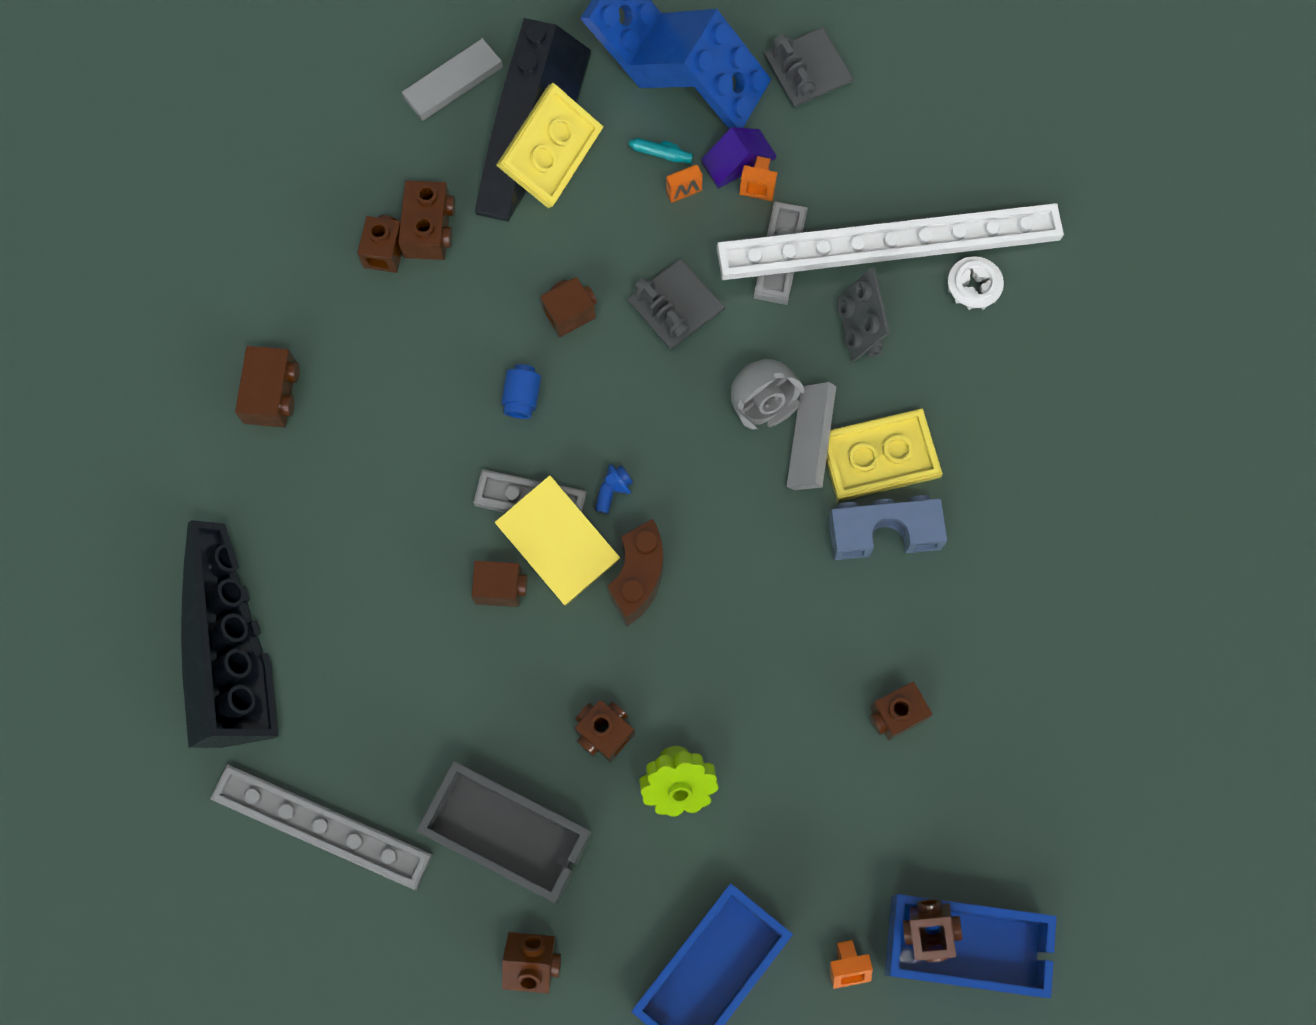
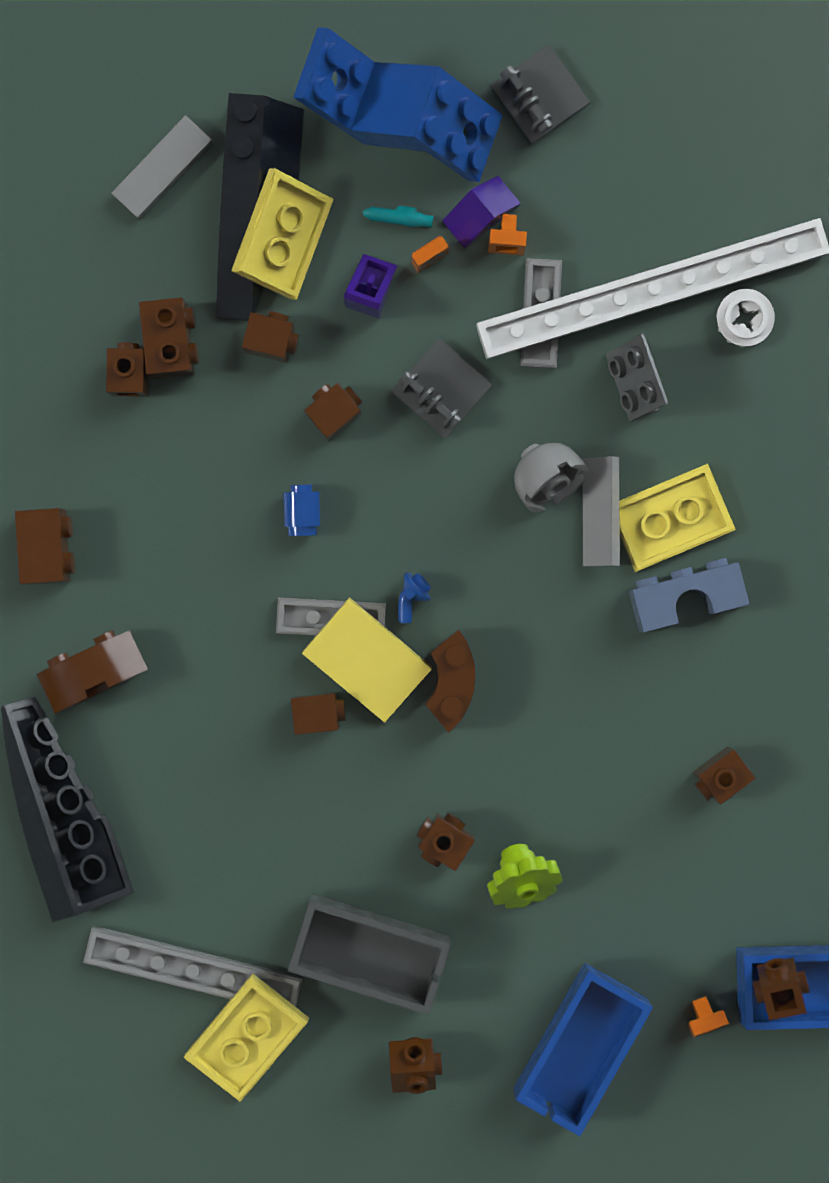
camera: 10 degrees left, 15 degrees up
(285, 507) = (92, 670): none -> reddish brown brick
(360, 905) = (246, 1037): none -> light yellow tile
(521, 233) = (270, 336): none -> reddish brown brick
(621, 205) = (370, 286): none -> dark purple slope

